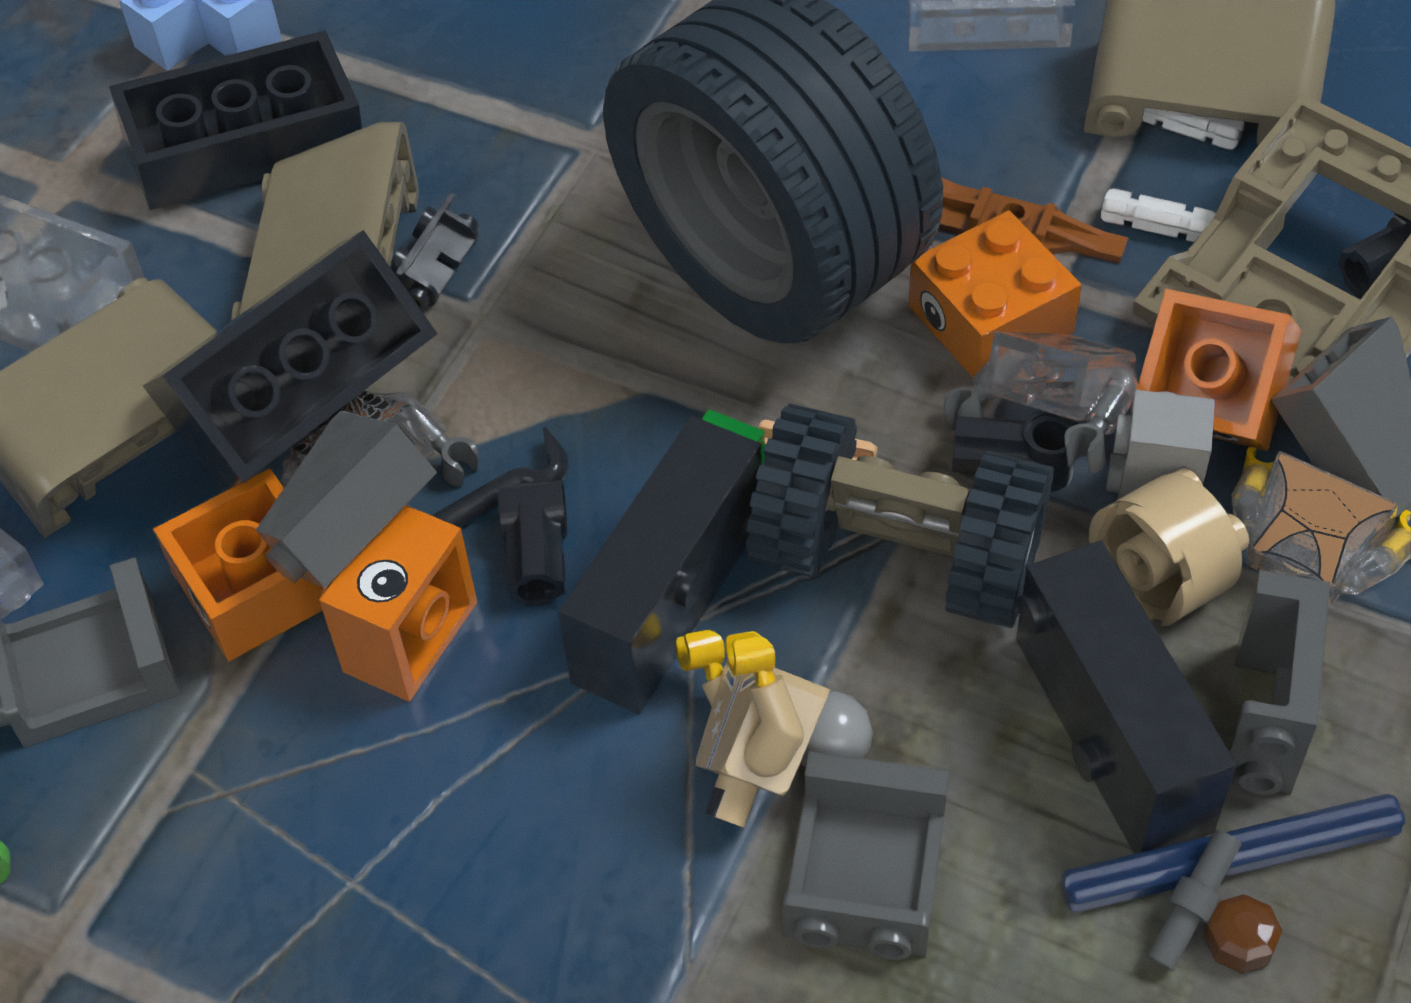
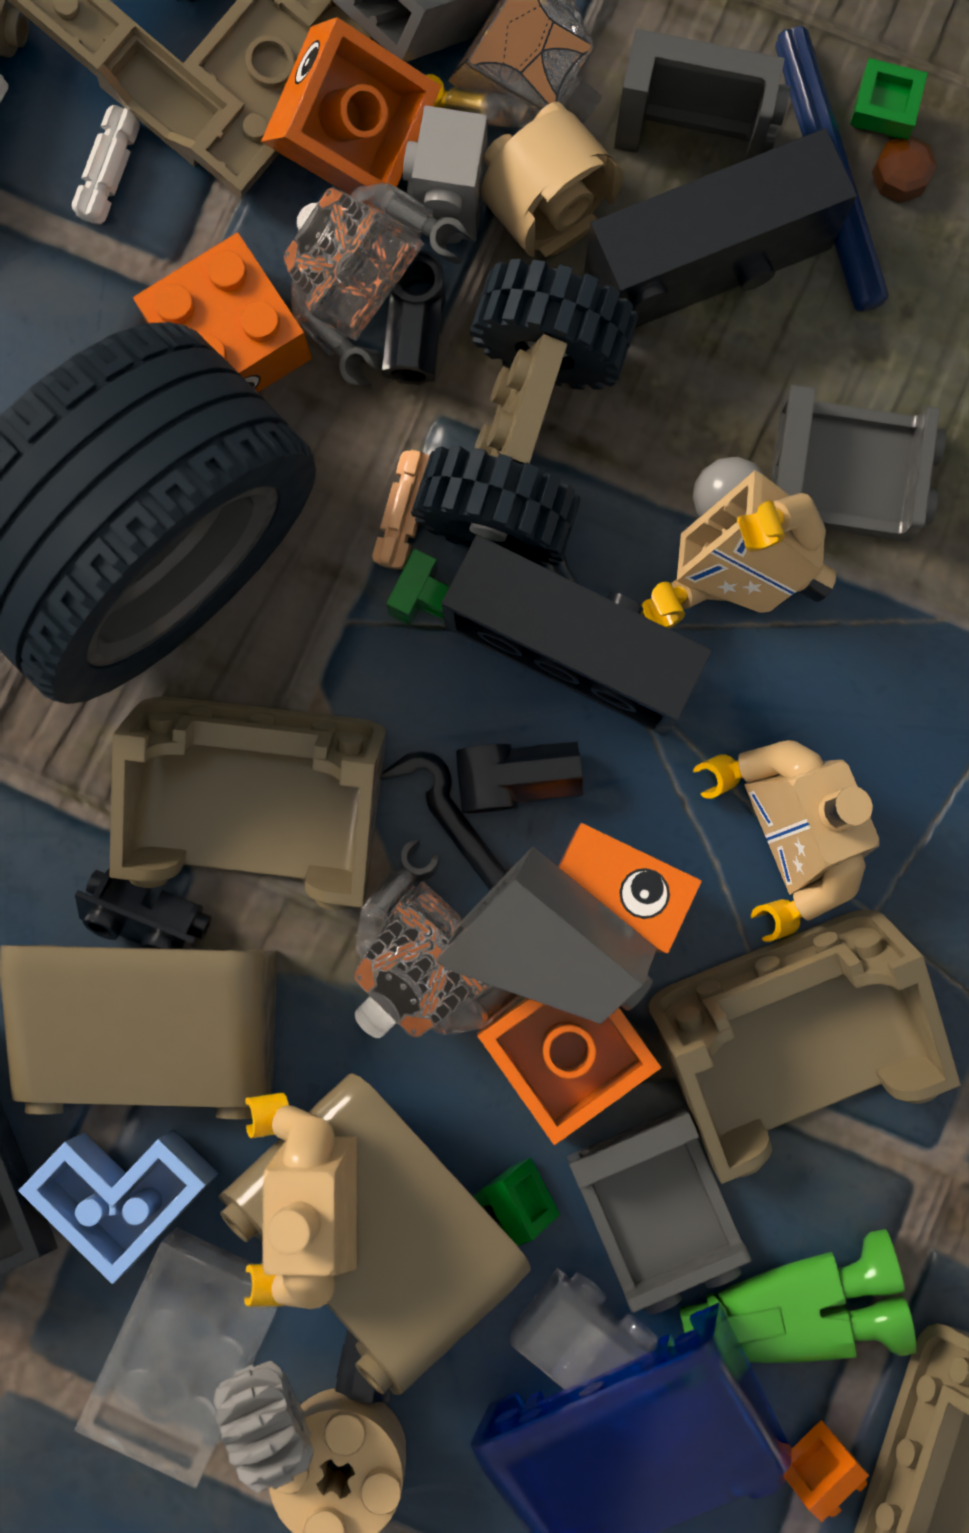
camera: 90 degrees left, 30 degrees up
(109, 534) = (520, 1202): none -> green tile
(130, 296) = (305, 1207): none -> tan torso
(180, 228) = (115, 1212): none -> light blue brick
(227, 773) = (801, 1032): none -> dark tan windscreen
(291, 361) = (371, 1020): black brick -> none
(451, 780) = (812, 822): none -> tan torso
(543, 317) = (246, 795): none -> dark tan windscreen
(1059, 233) = (111, 278): dark orange piece -> none
(1194, 900) = (888, 201): dark grey bar -> none
(1318, 899) = (888, 99): none -> green tile

